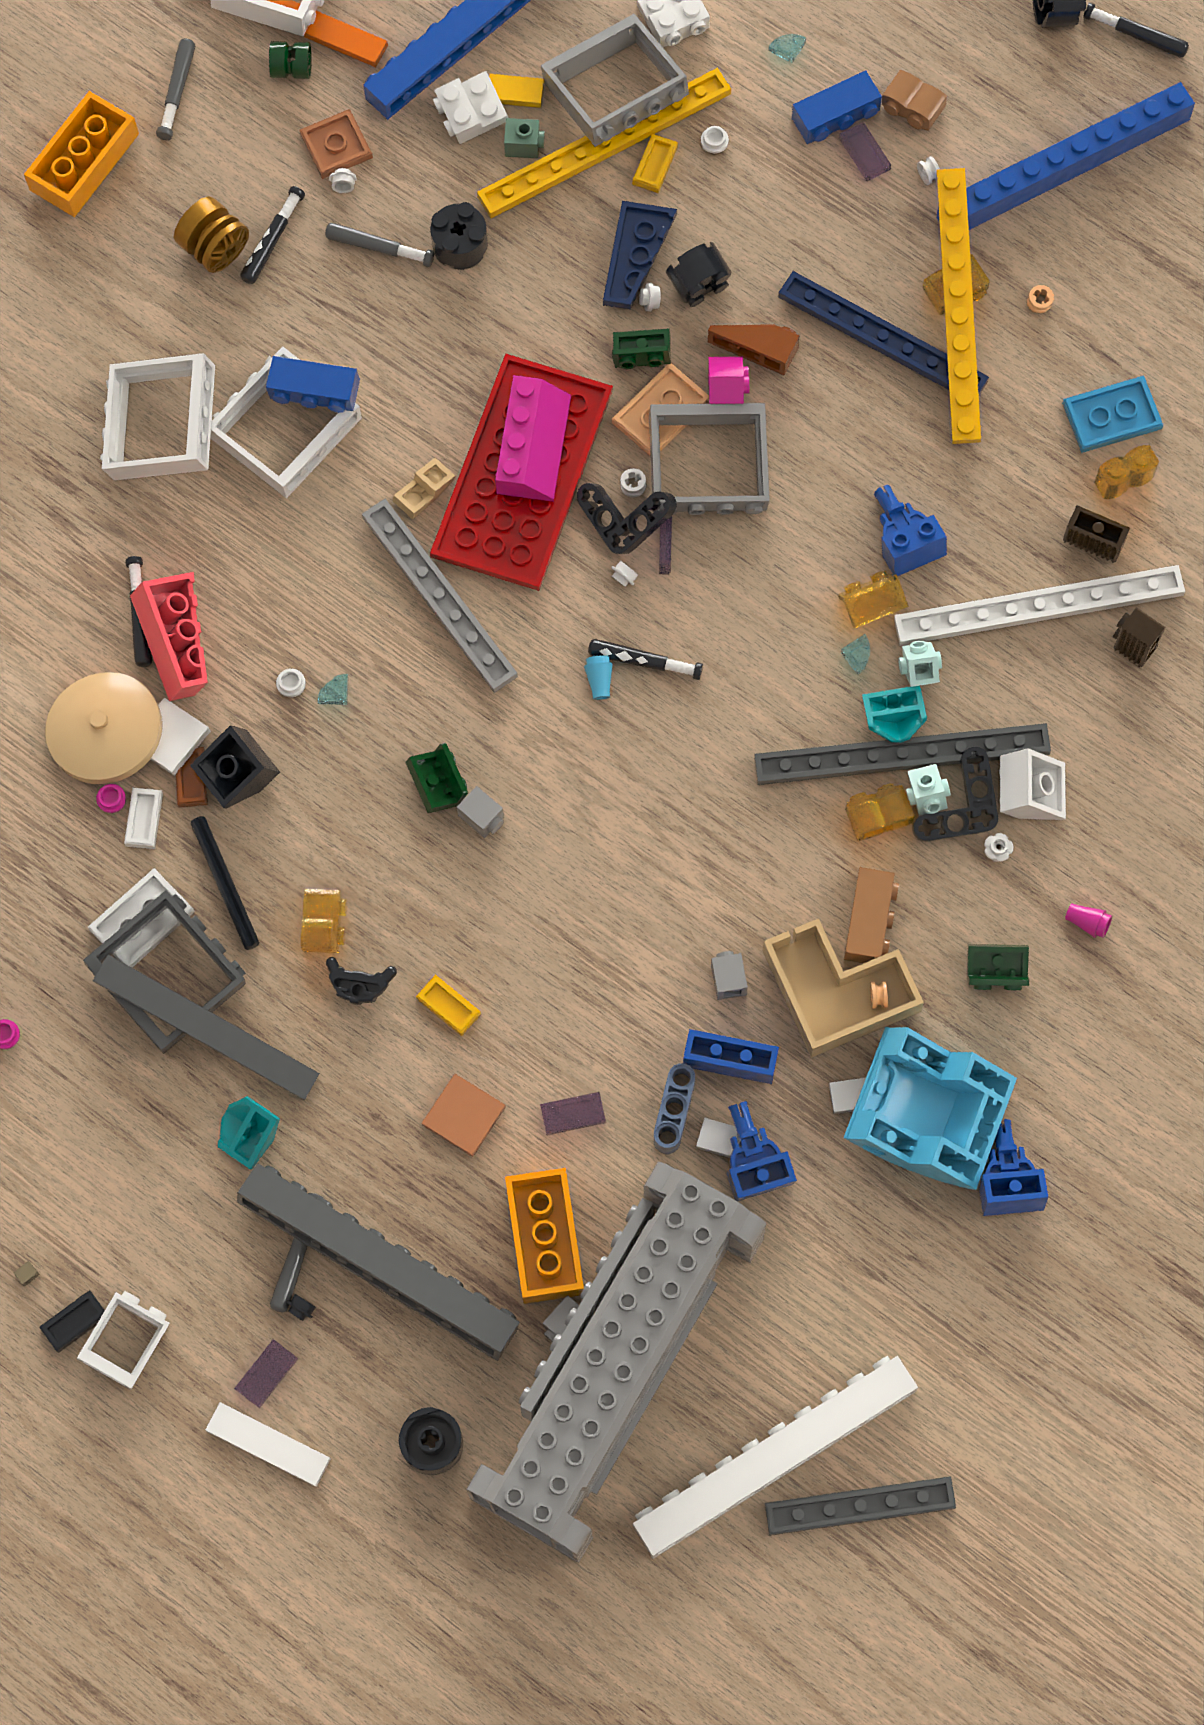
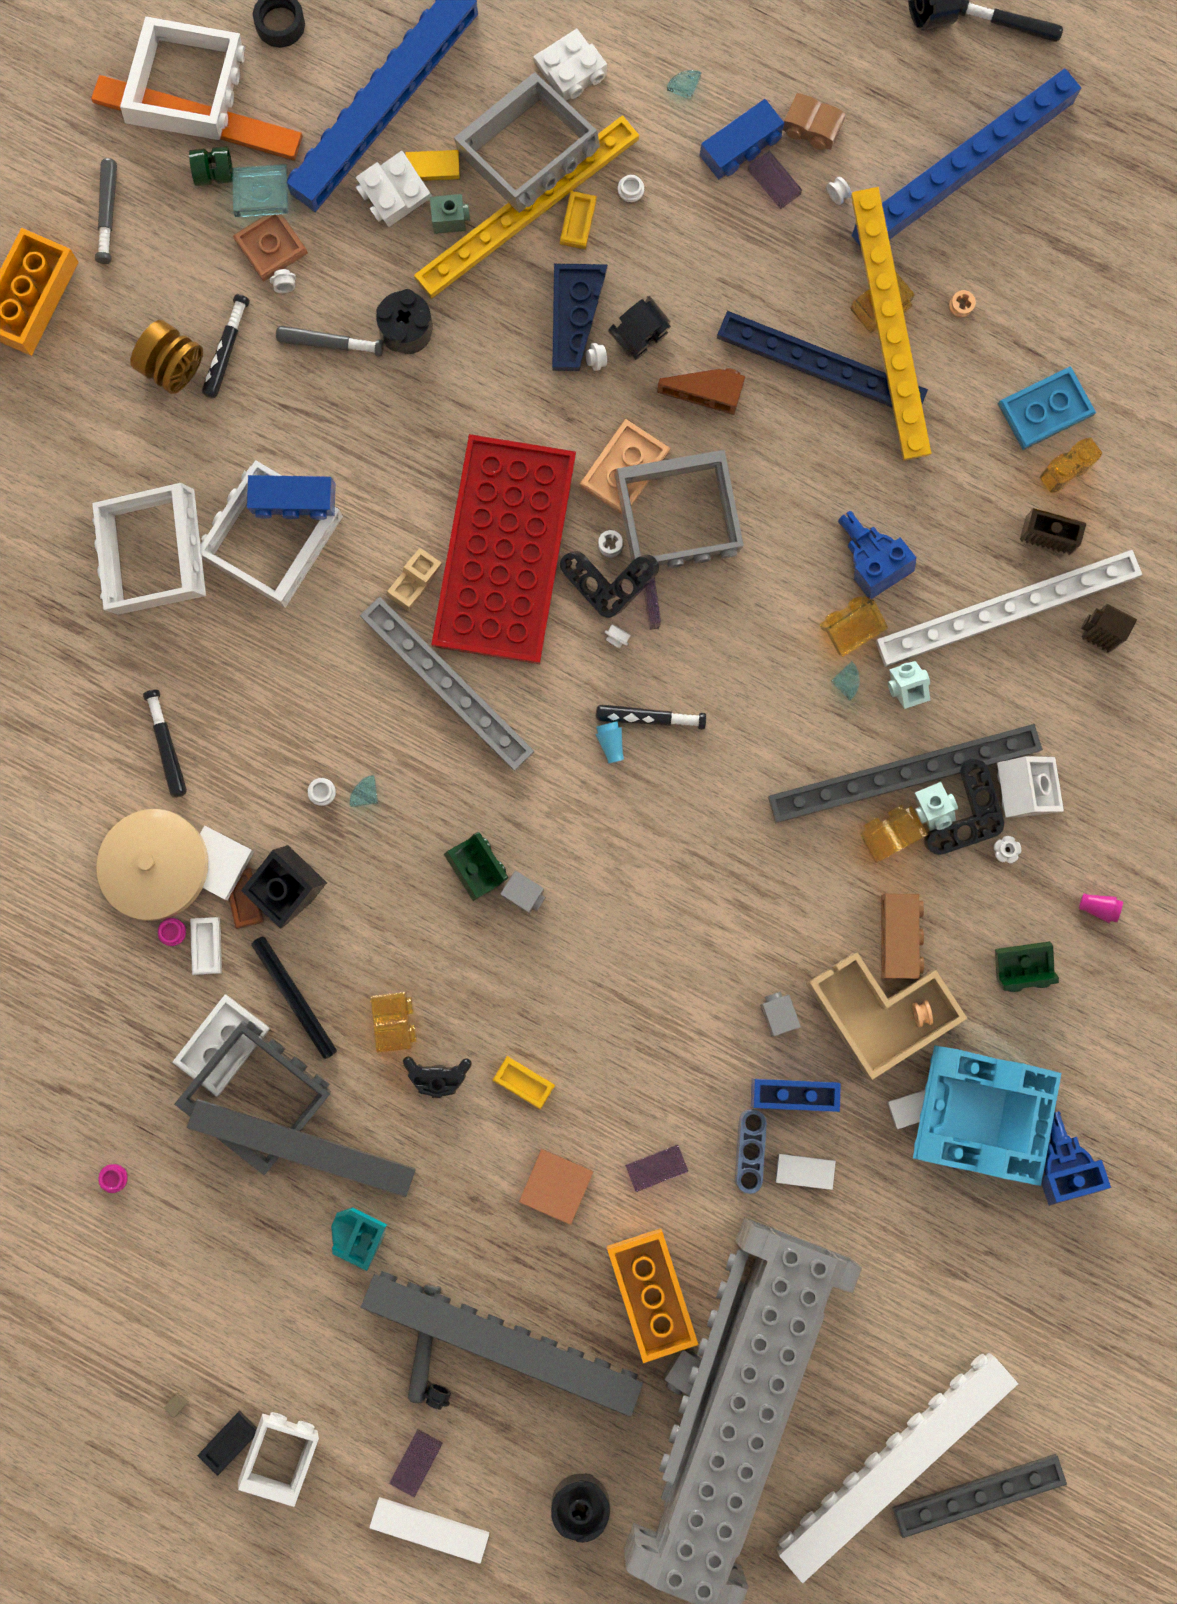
camera: 15 degrees left, 10 degrees up
(172, 632) = (201, 763): coral wedge -> none
(335, 90) = (260, 190): none -> clear light blue tile
(532, 439) = (510, 518): dark pink slope -> none
(641, 348) = (597, 409): dark green bracket -> none
(727, 380) = (684, 431): dark pink brick -> none
(757, 1164) = (837, 1195): blue brick -> none
(895, 712) = (894, 736): teal slope -> none

